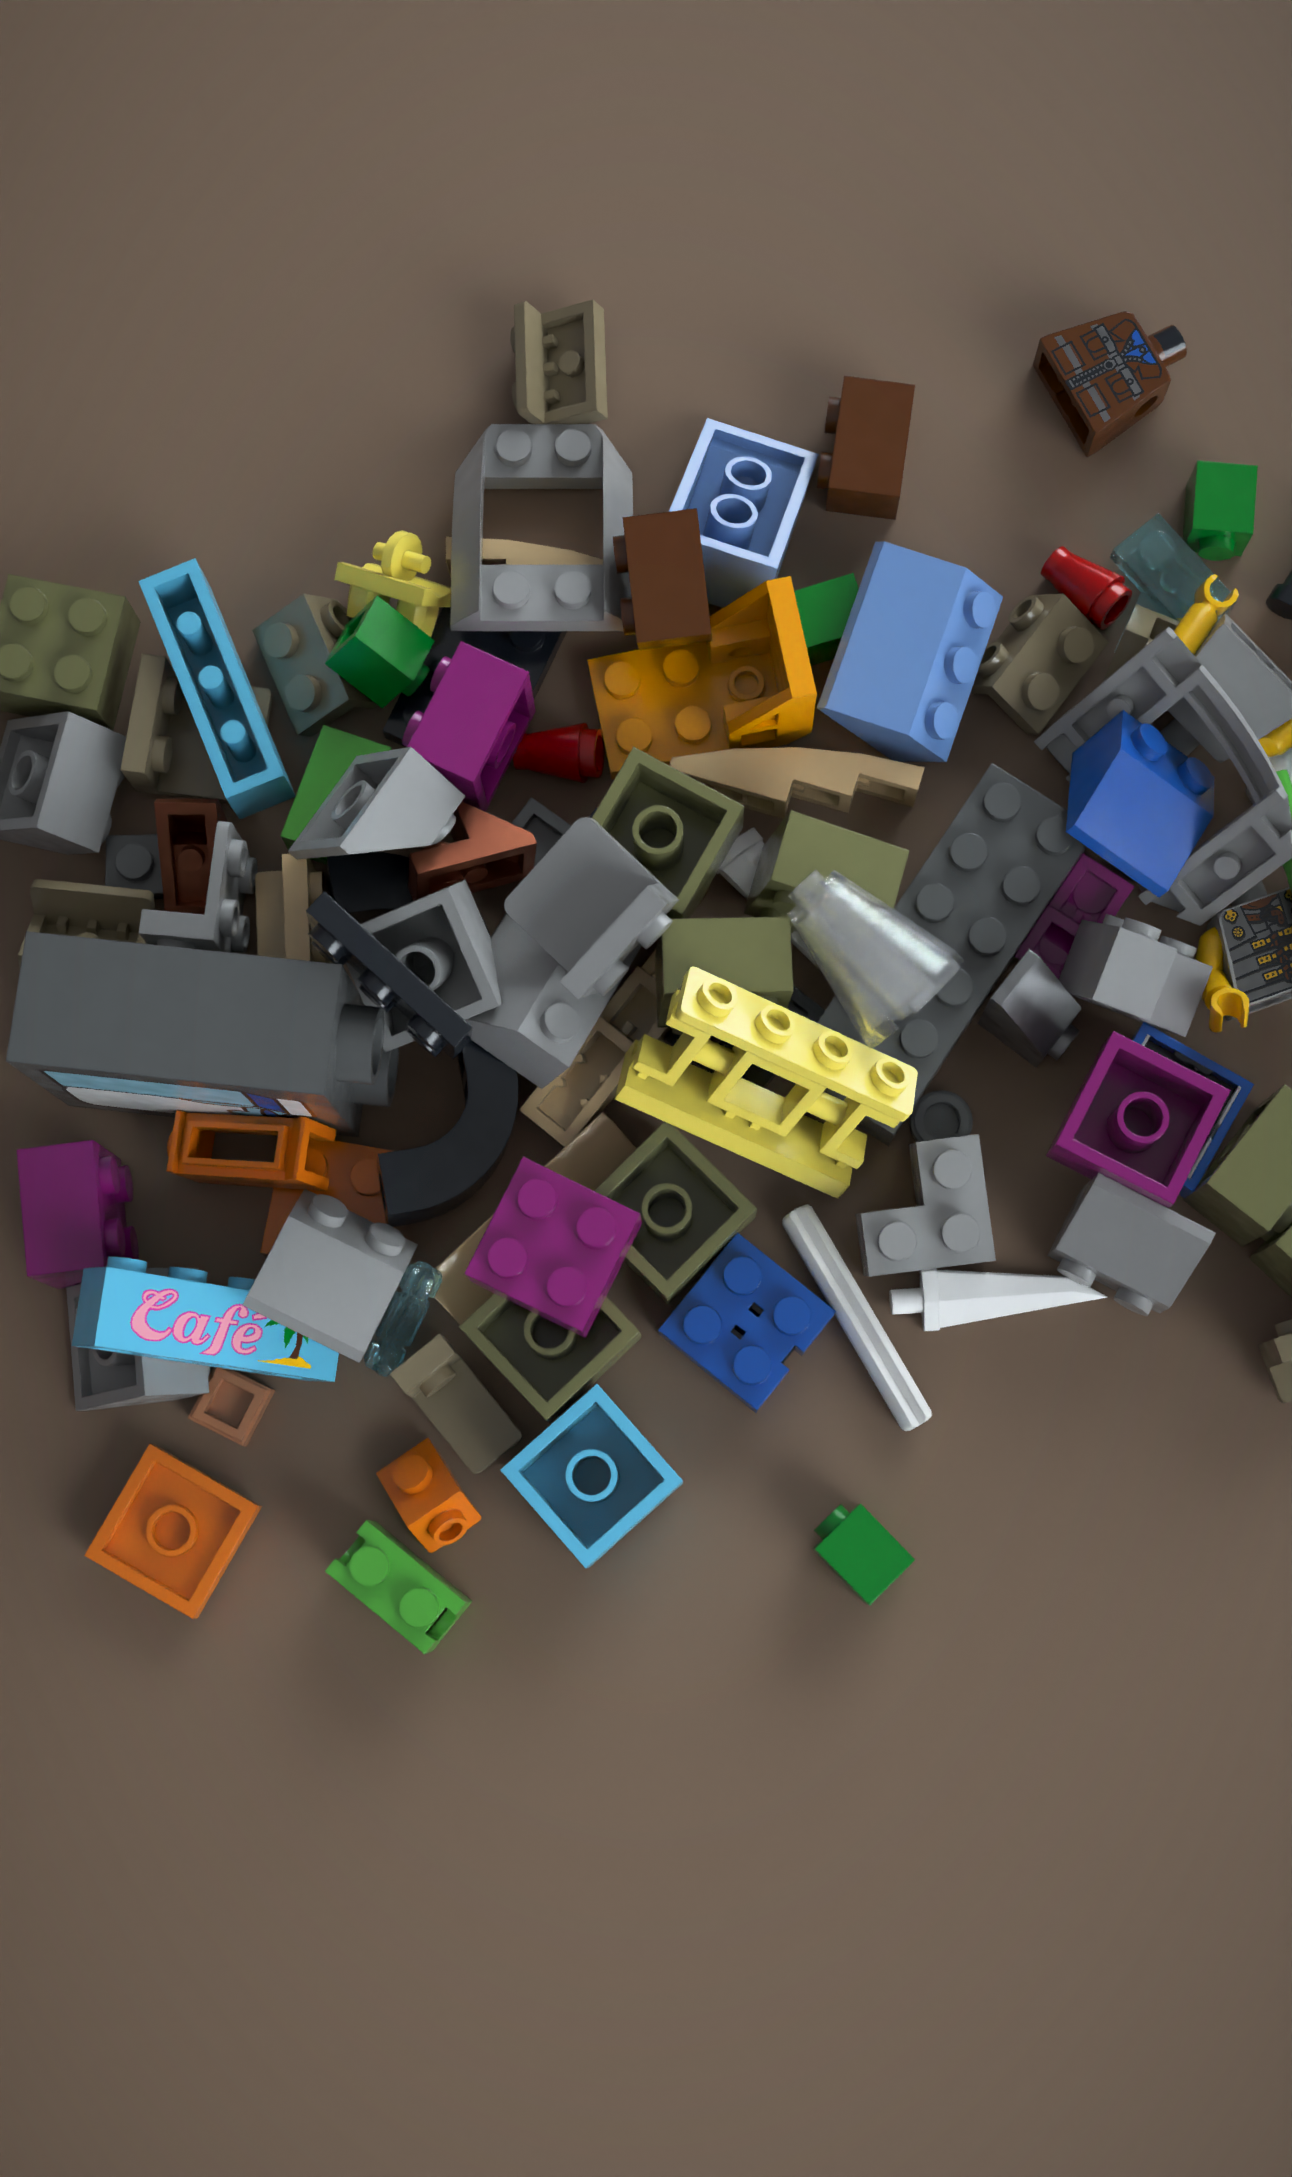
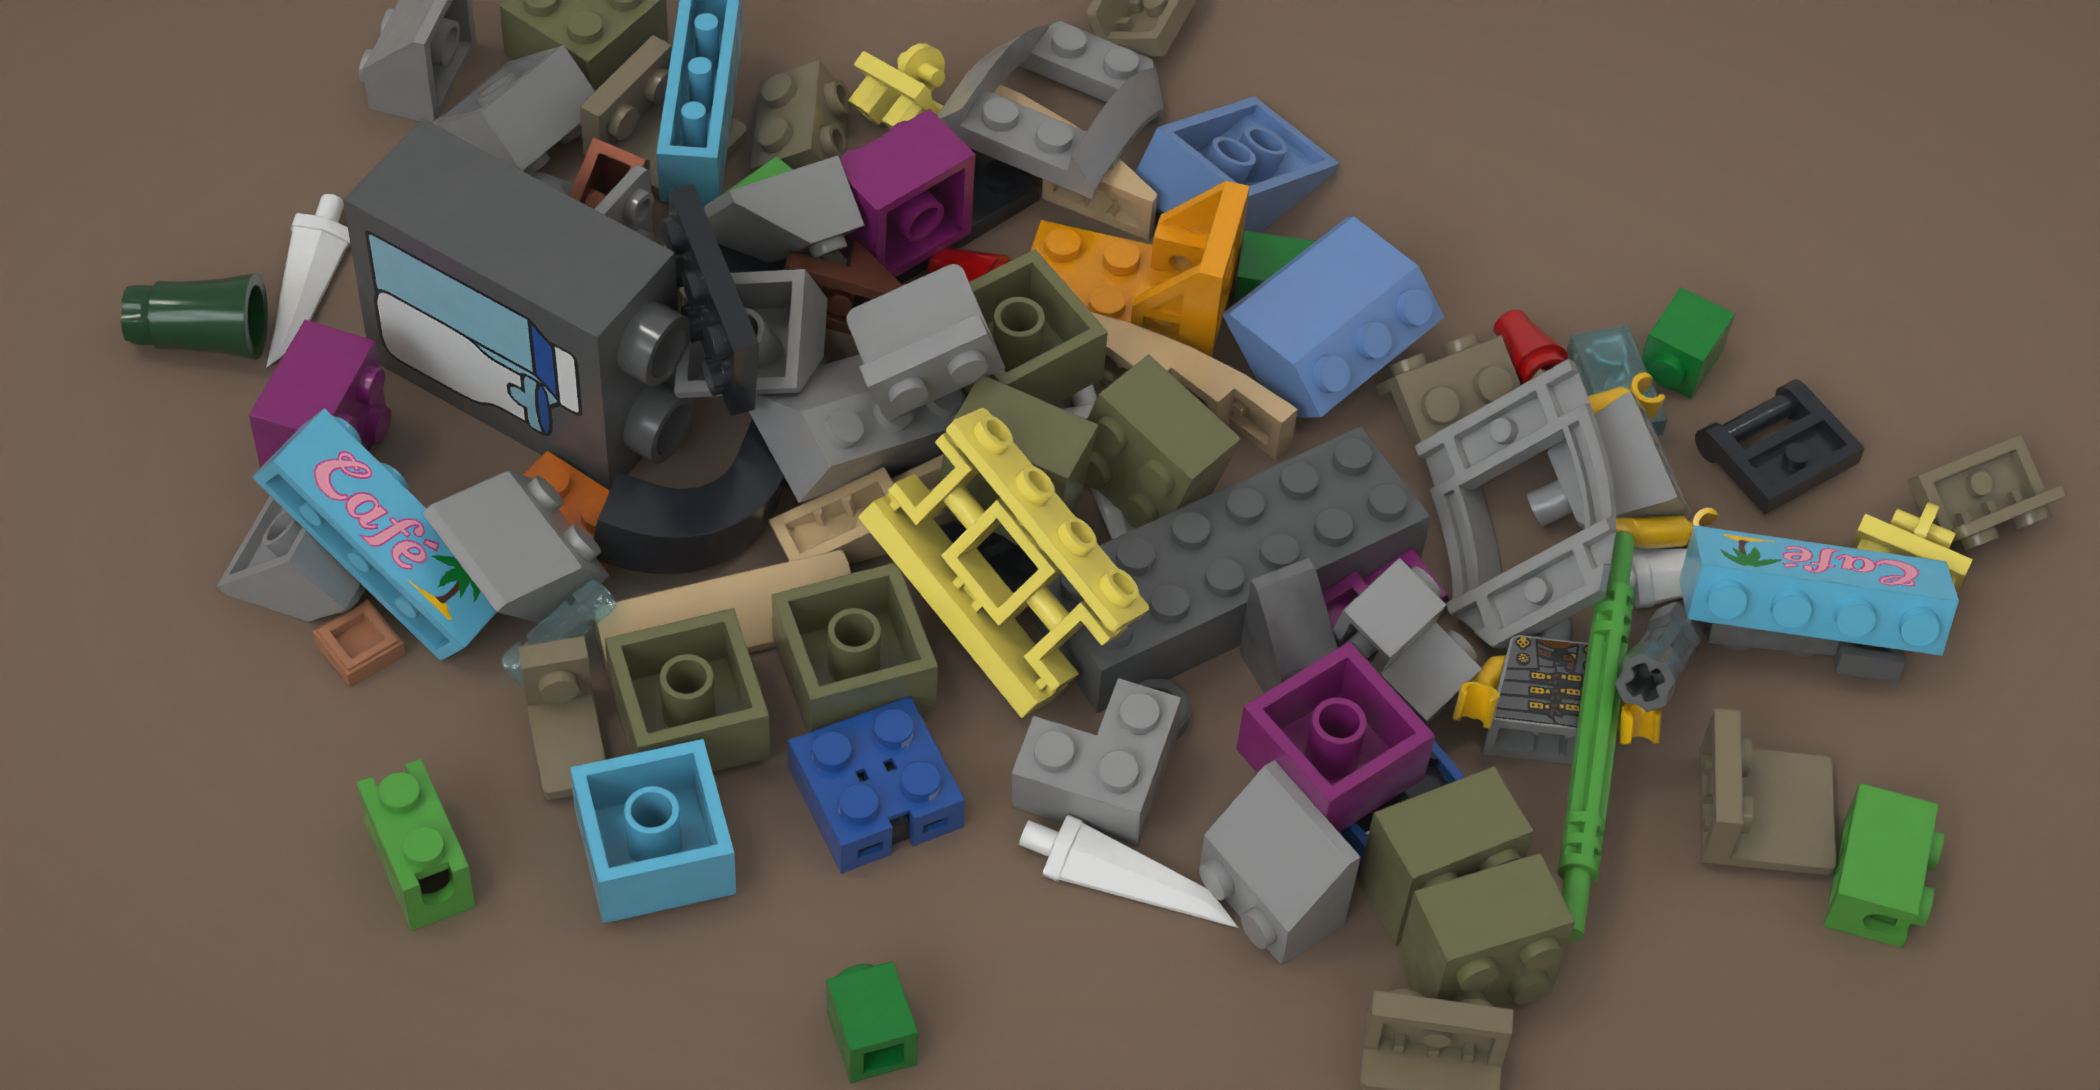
camera: 15 degrees right, 25 degrees down
(173, 1531) = (239, 712): orange plate -> none
(193, 1140) = (499, 434): orange window -> none
(381, 653) = (854, 114): green brick -> none
(428, 1496) = (490, 794): orange bracket -> none
(554, 1247) = (730, 597): magenta brick -> none
(665, 579) = (1139, 155): reddish brown brick -> none
(856, 1318) = (983, 832): white axle -> none
(868, 447) = (1386, 168): reddish brown brick -> none
(869, 953) = (1156, 487): clear cone -> none
(1107, 375) = (1635, 205): reddish brown torso -> none
(1138, 801) = (1482, 508): blue slope -> none

